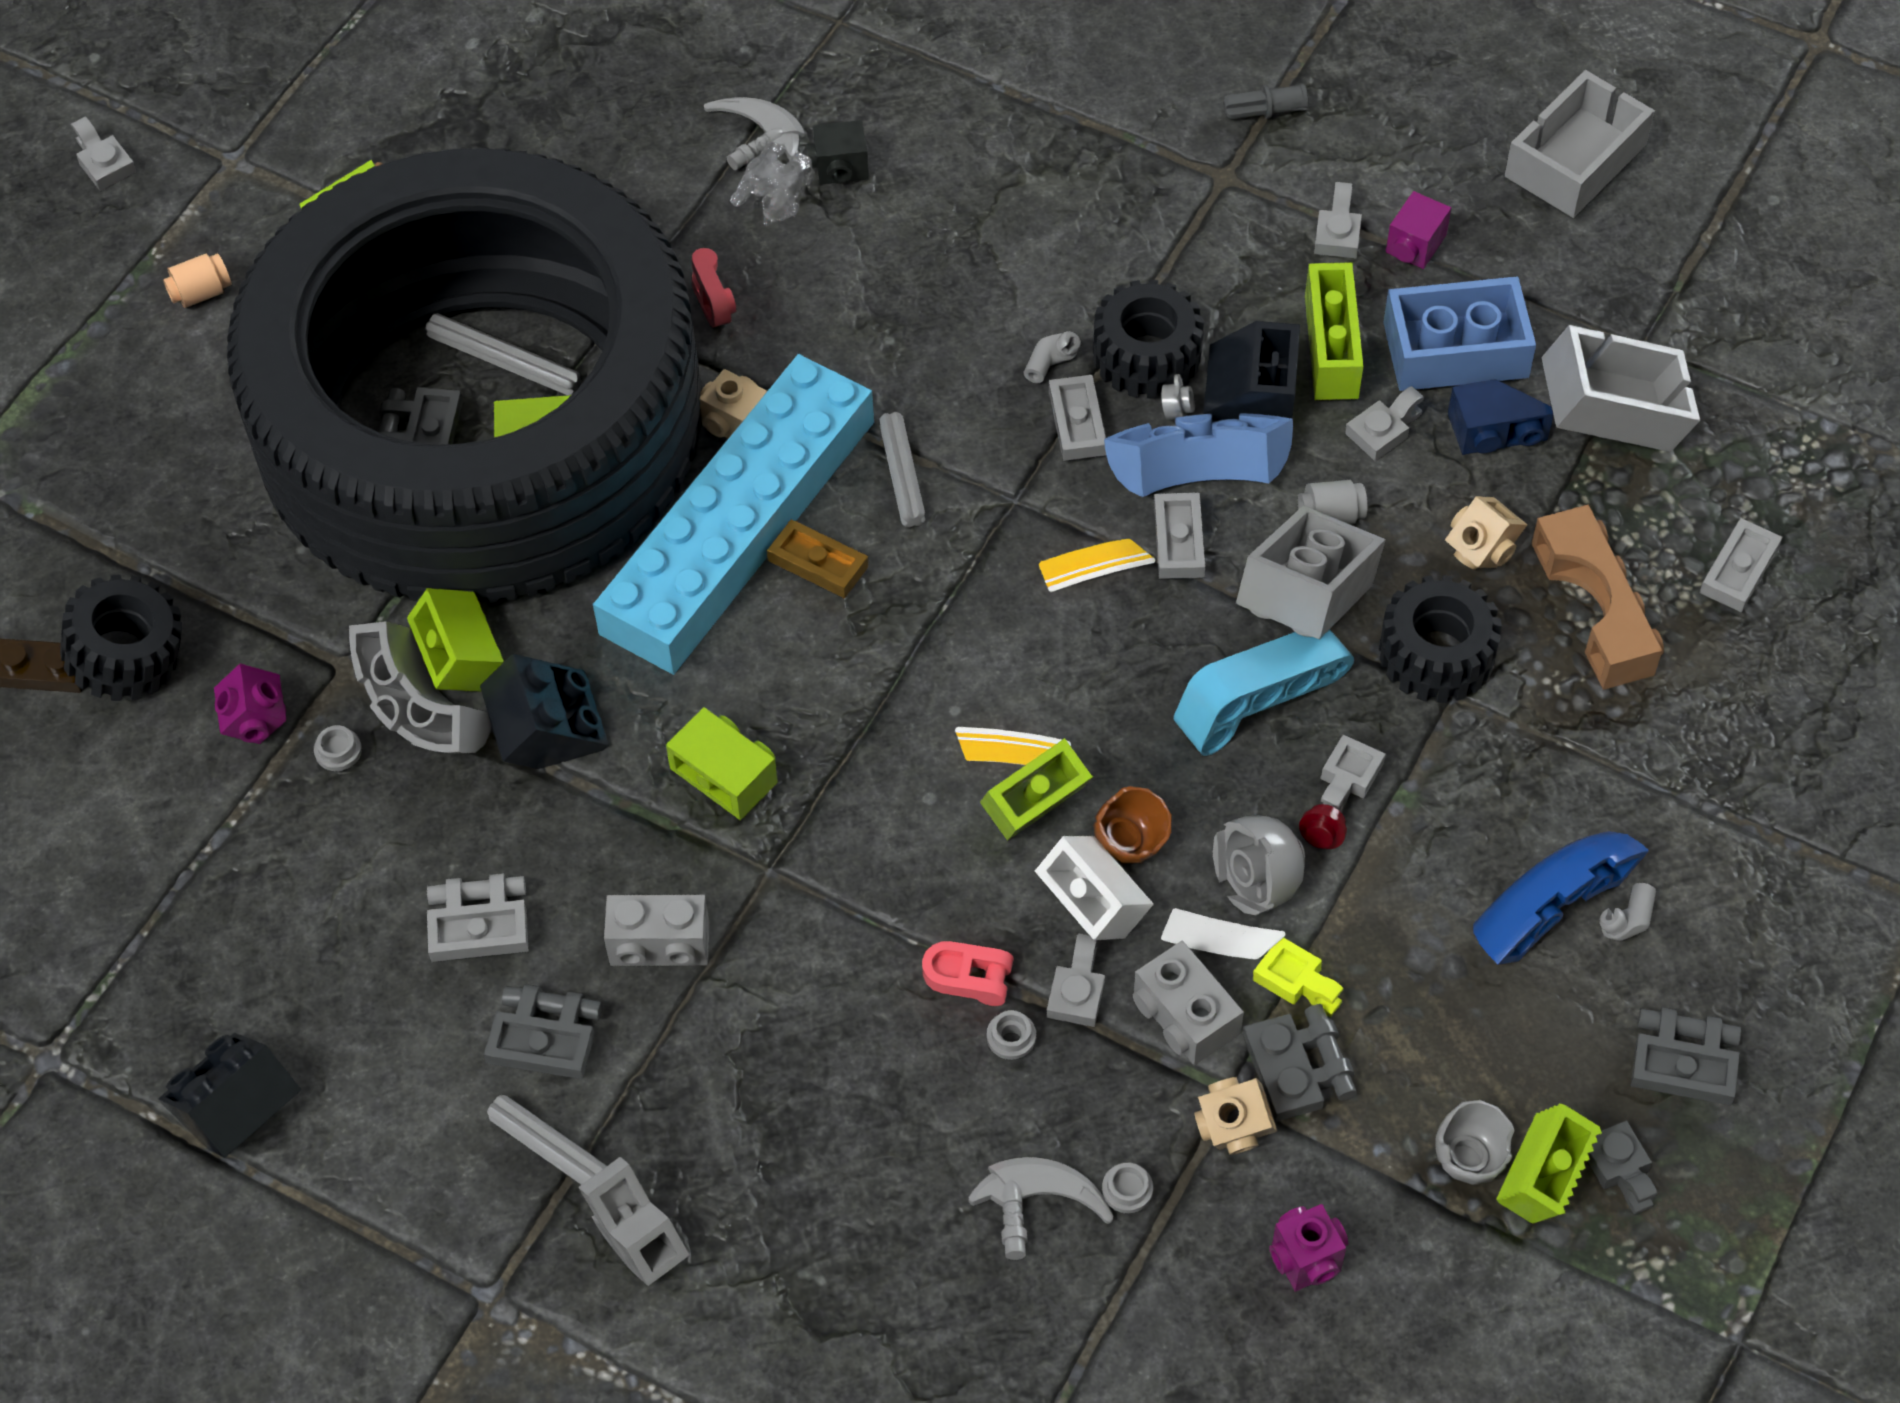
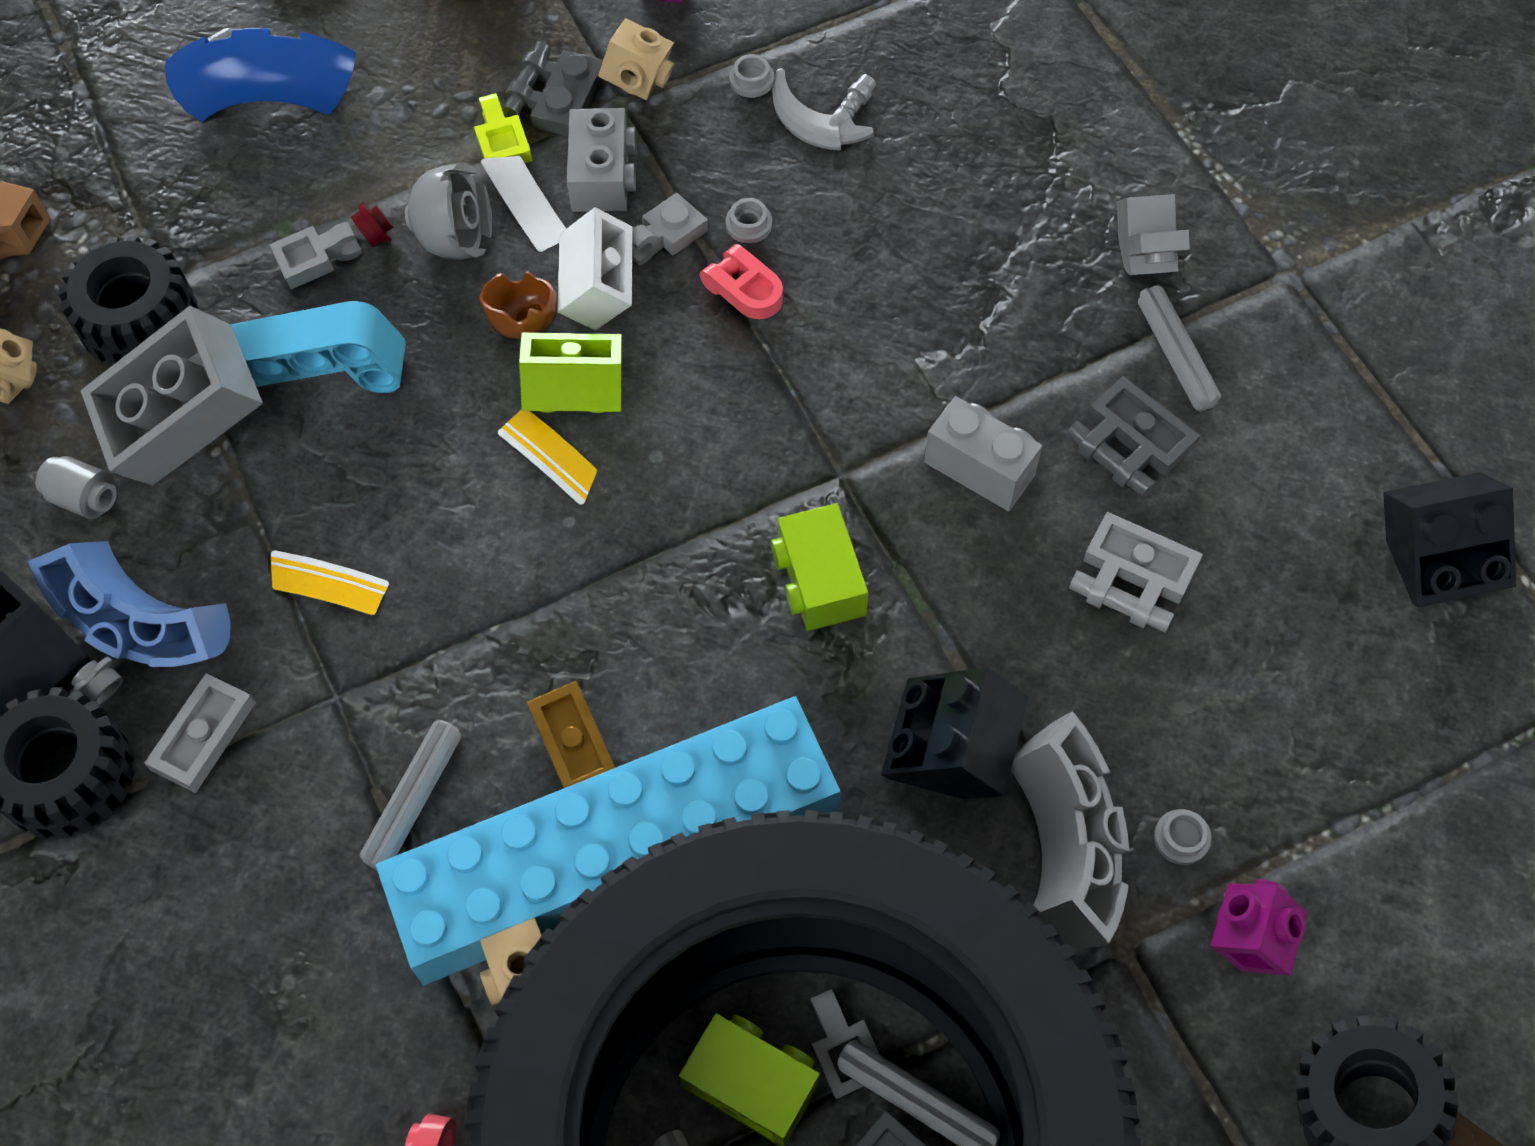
camera: 145 degrees left, 5 degrees up
(454, 639) = (1010, 841): lime brick -> none
(1051, 351) = (152, 836): light grey arm -> none
(1179, 535) = (232, 545): light grey plate -> none

